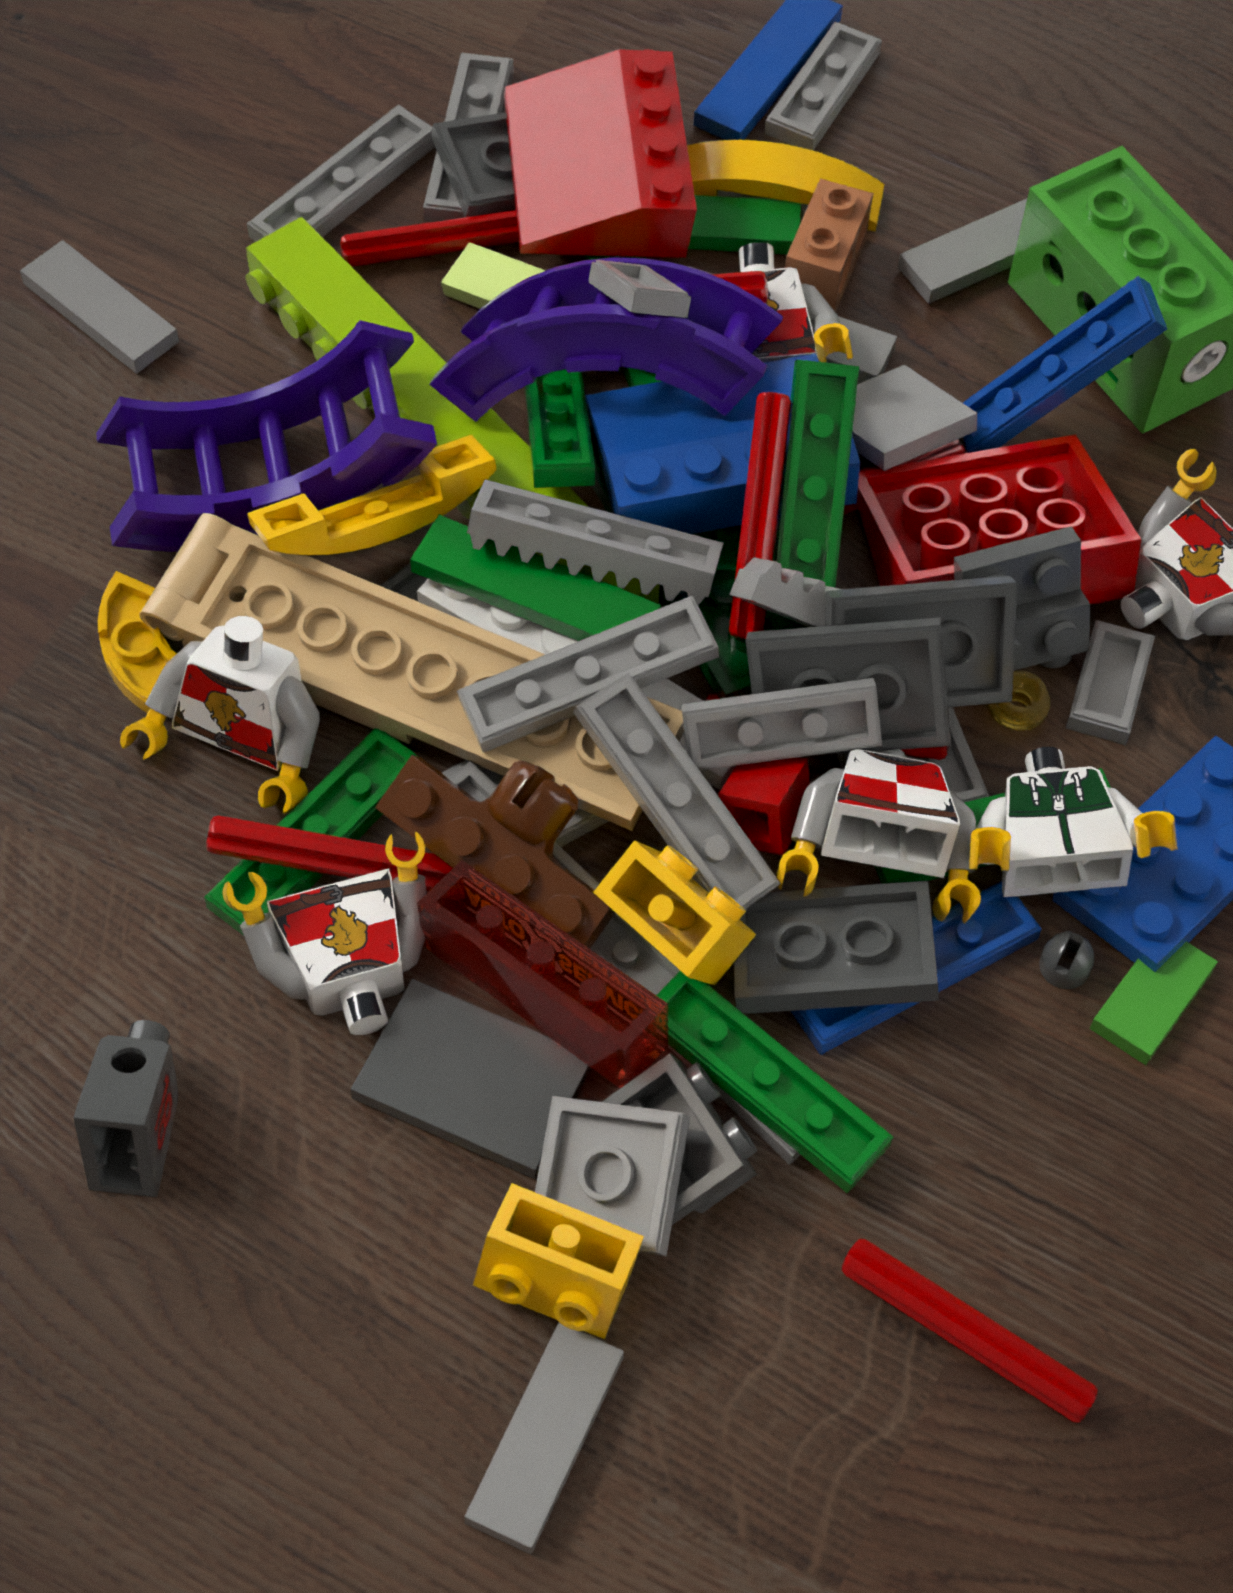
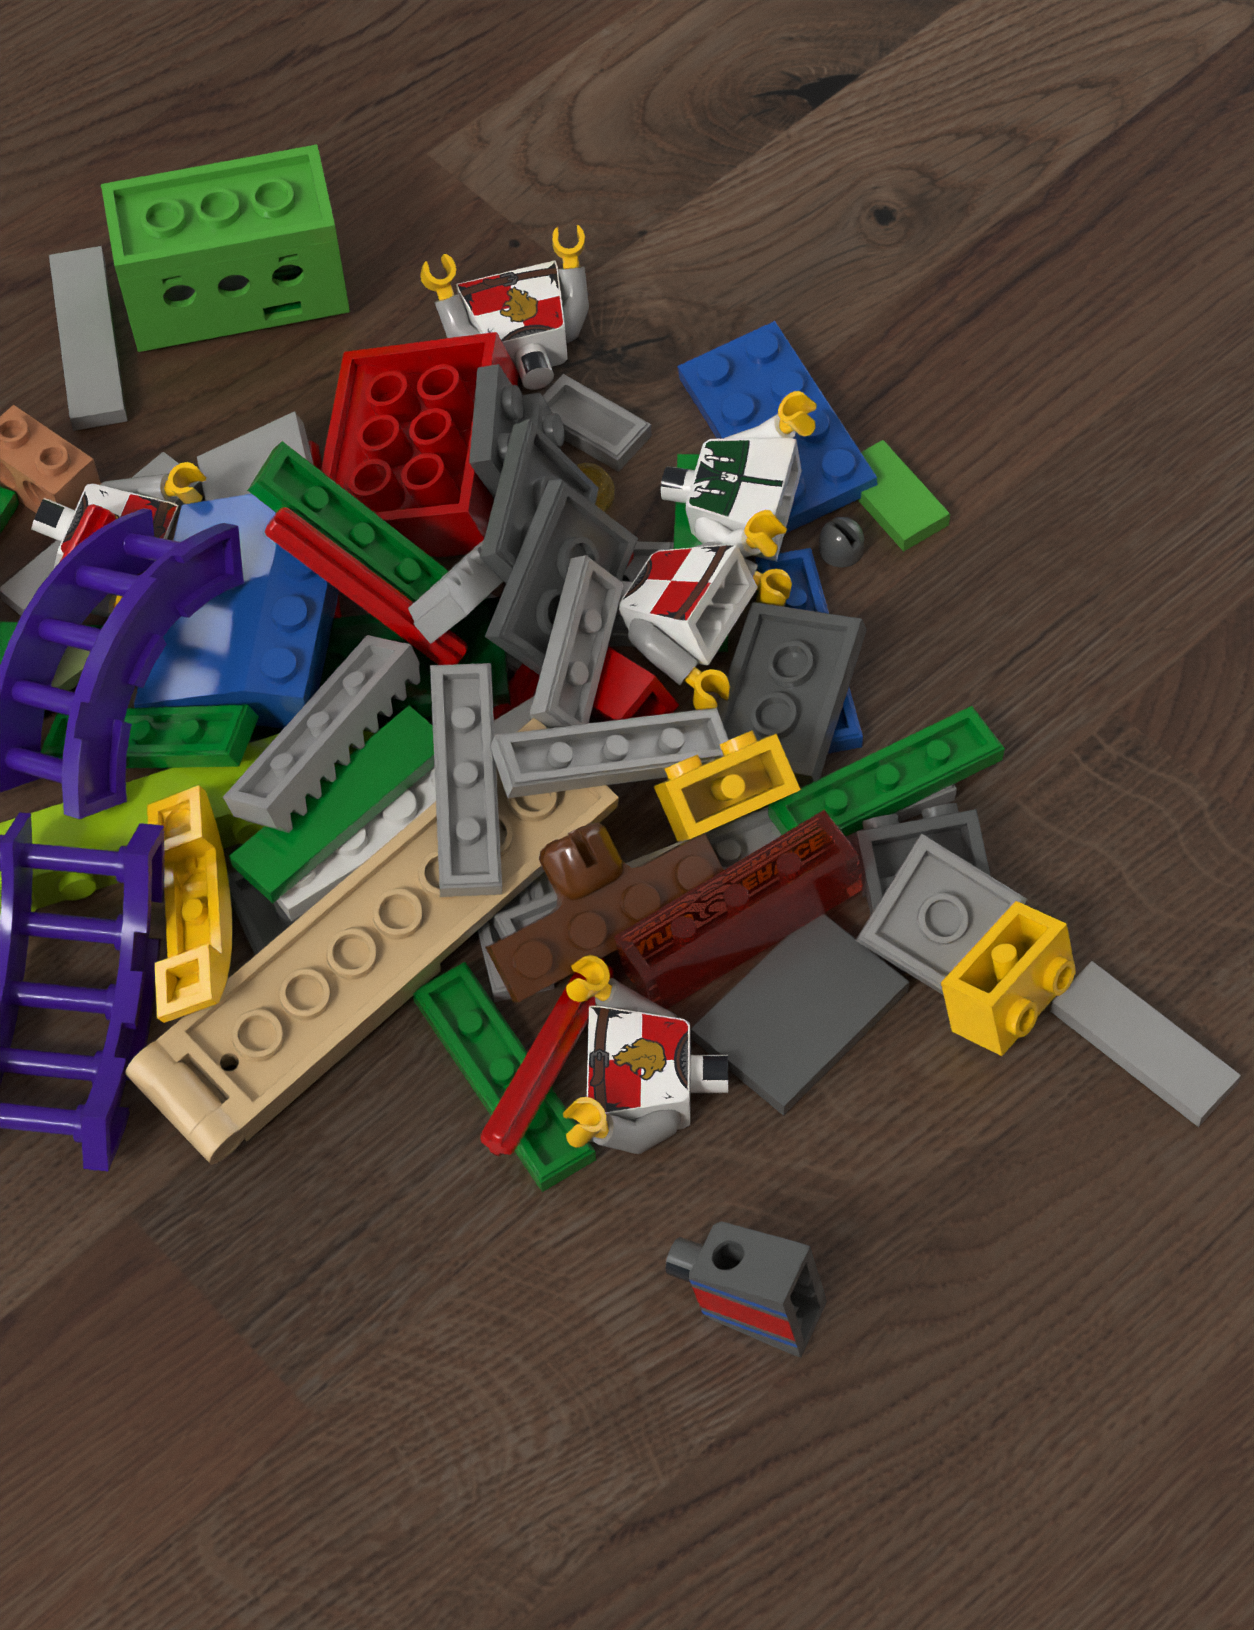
camera: 65 degrees left, 0 degrees up
(128, 645) = (232, 1190): yellow tile -> none
(241, 699) = (348, 1090): torso -> none
(639, 289) = (95, 590): light grey tile -> none
(970, 1330) = (1140, 716): red axle -> none
(1065, 365) = (294, 319): blue tile -> none

